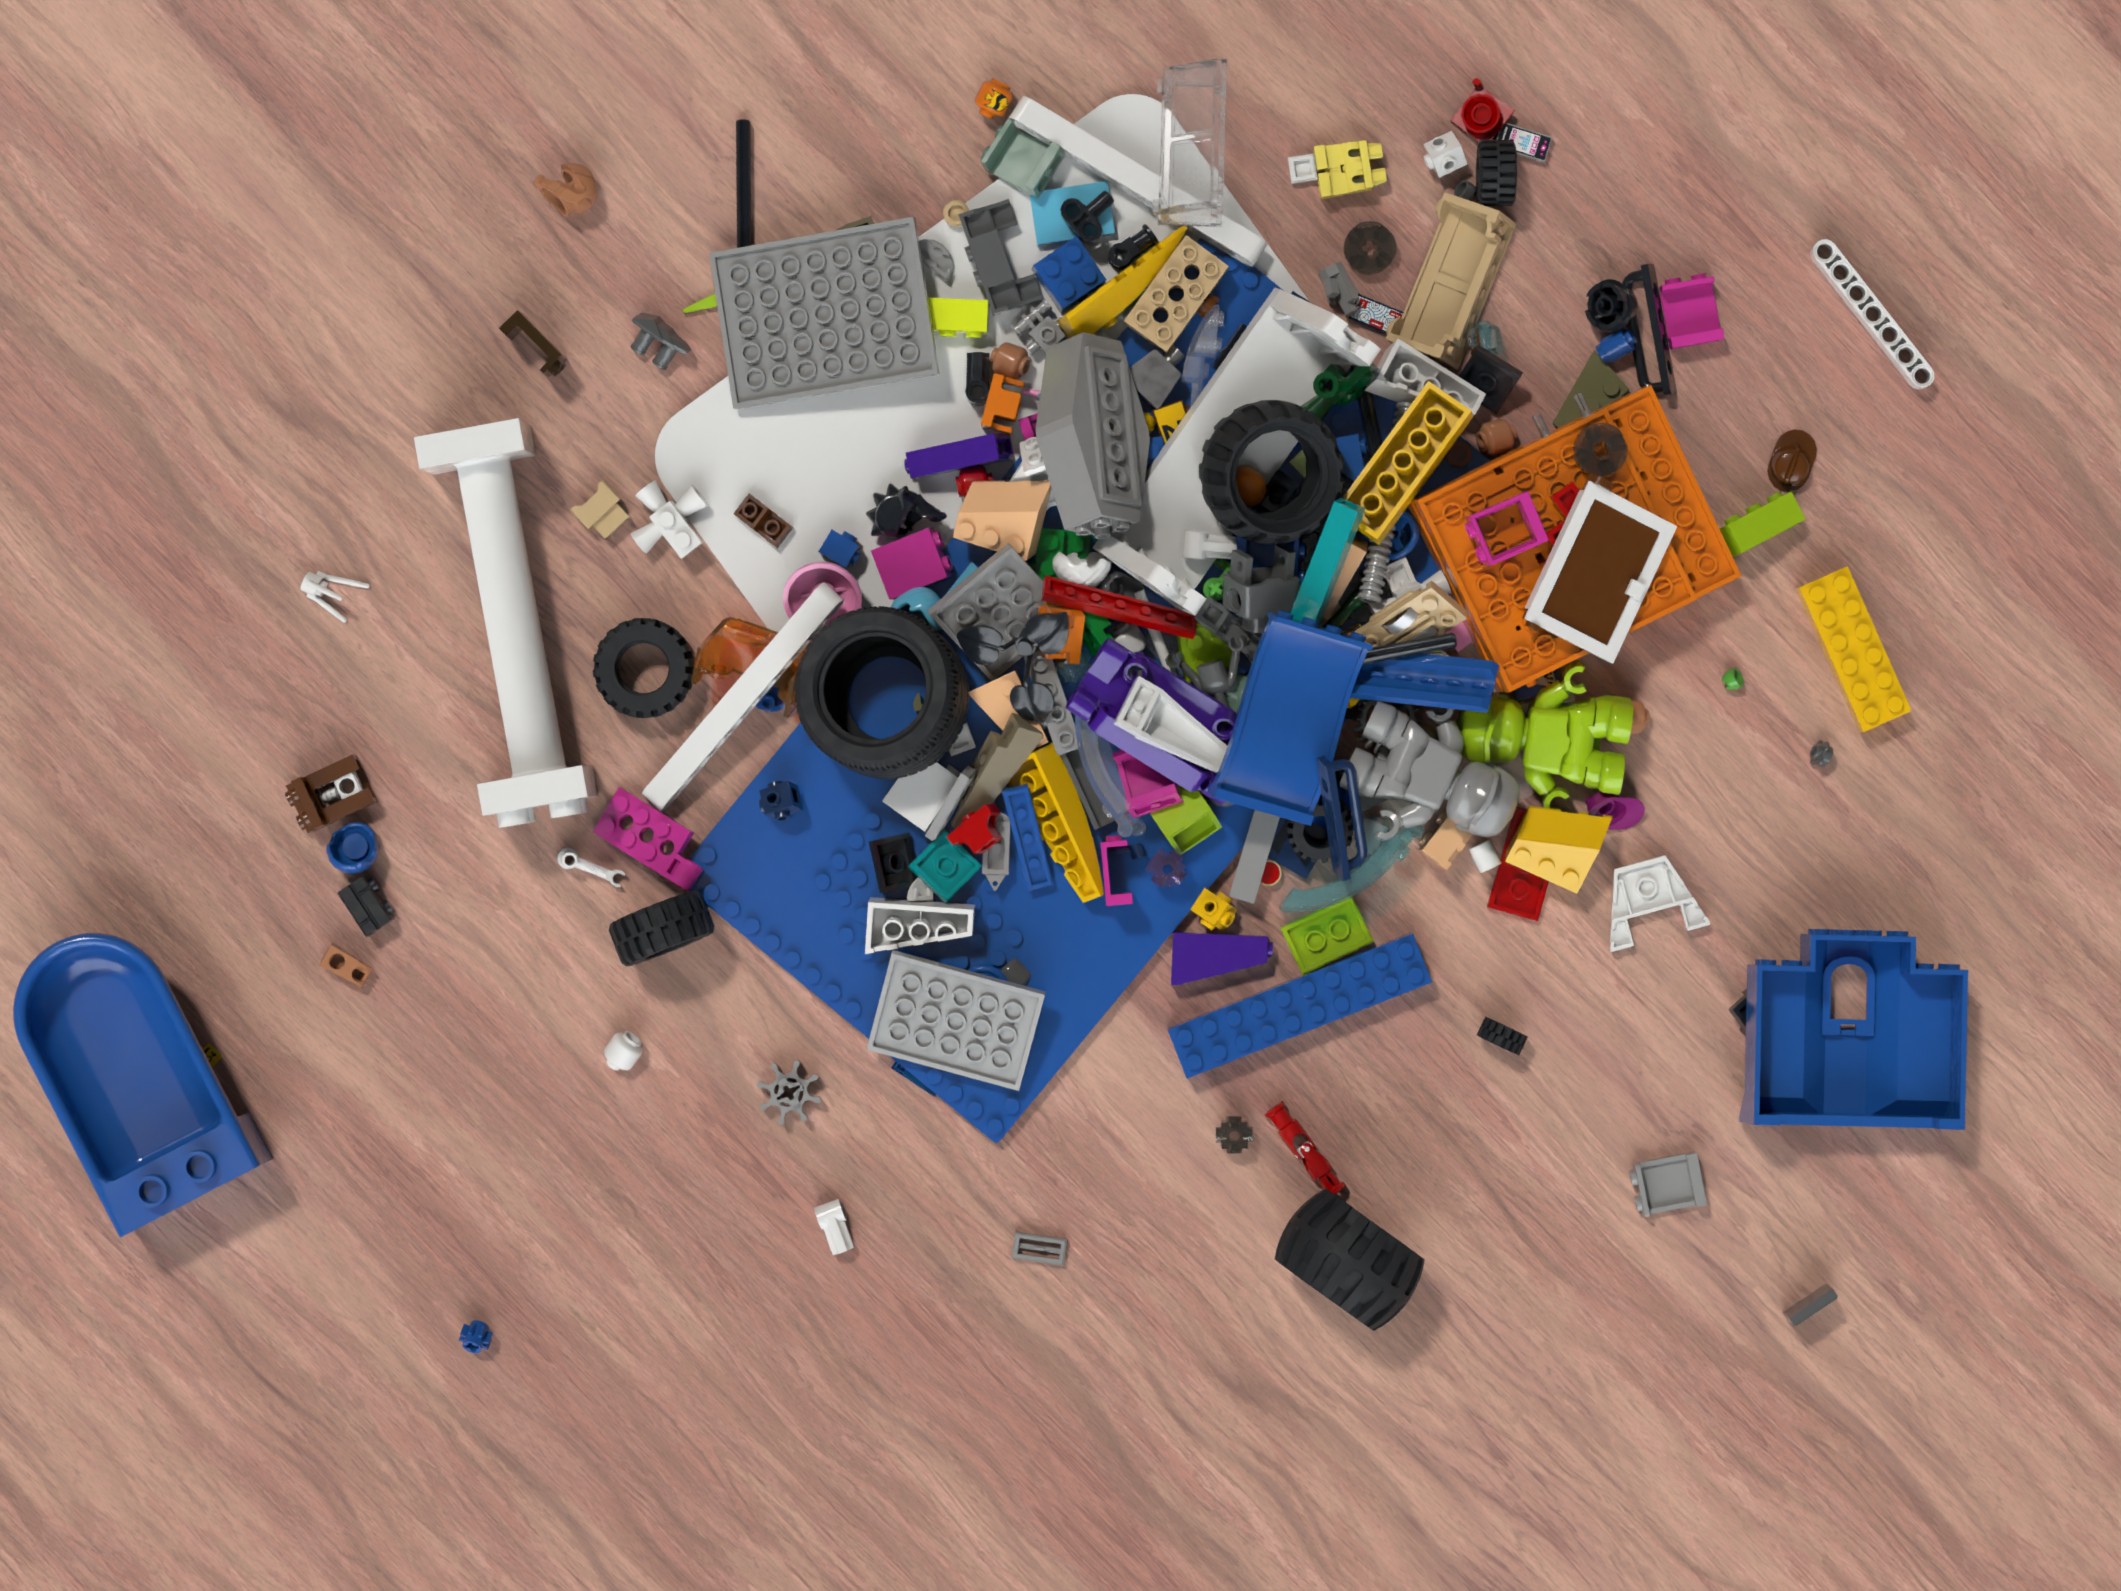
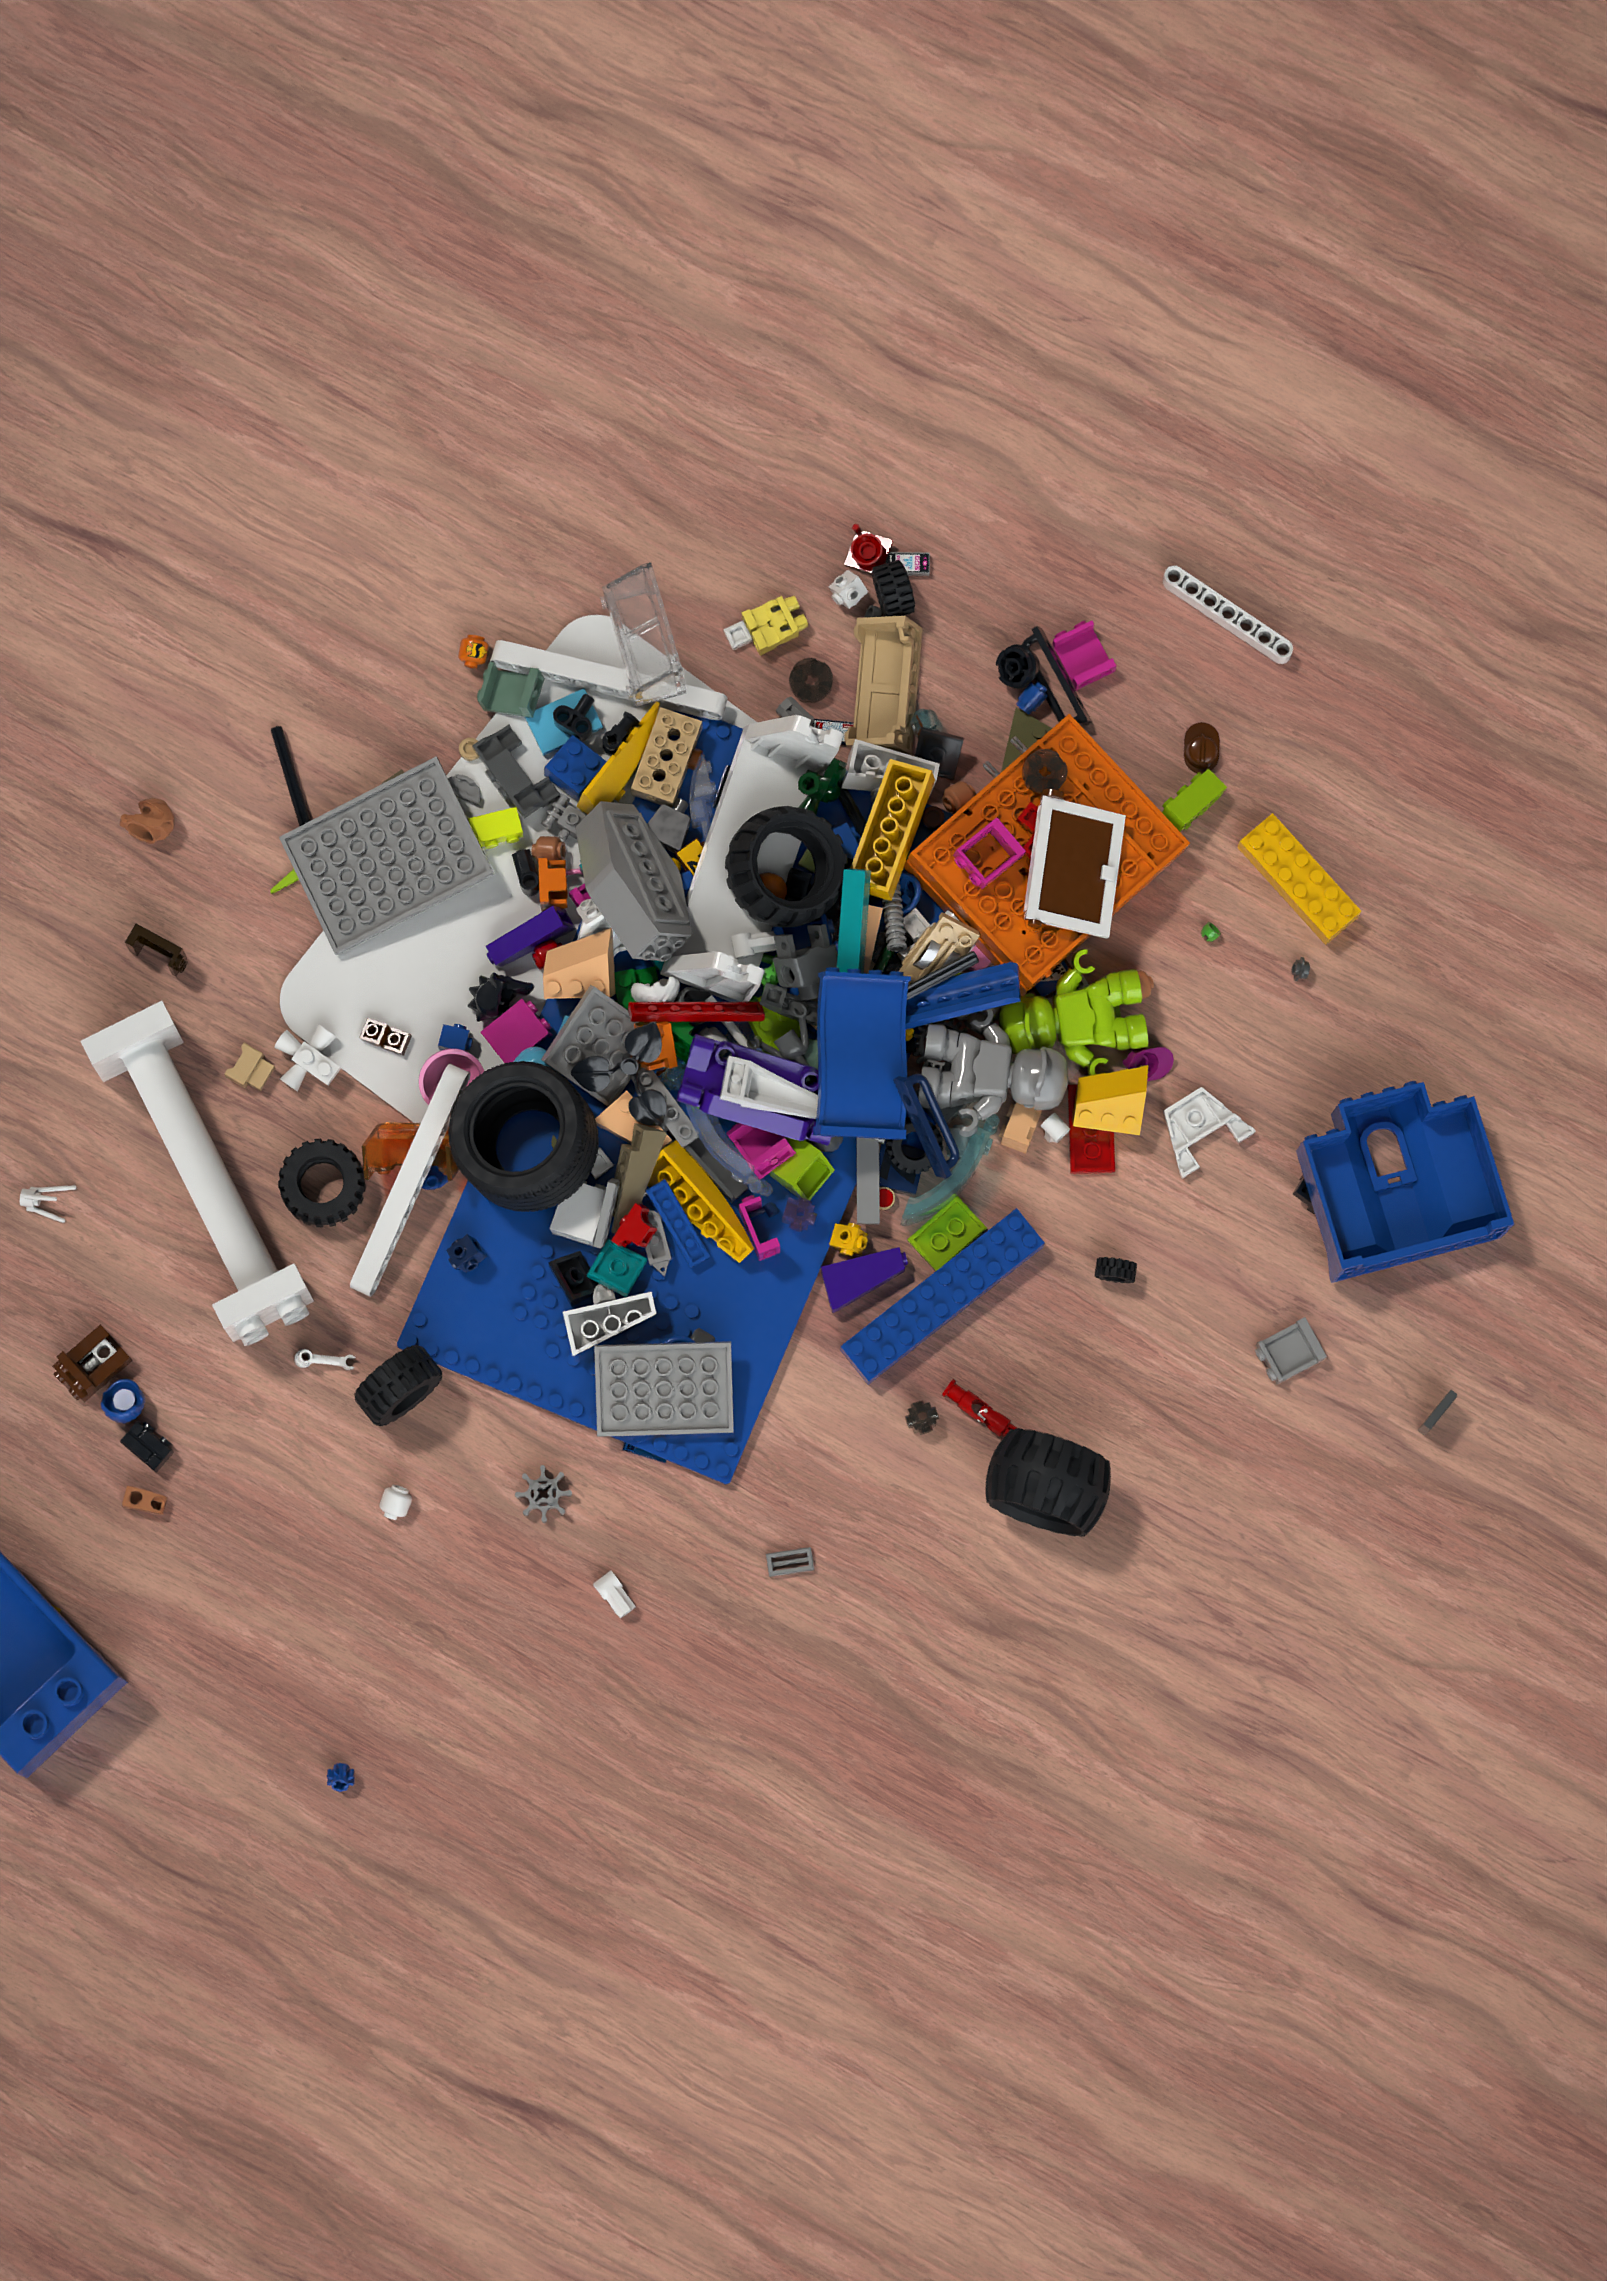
camera: 20 degrees left, 10 degrees down
(645, 817) = (392, 1335): dark pink hinge -> none
(654, 327) = (250, 910): dark grey connector -> none

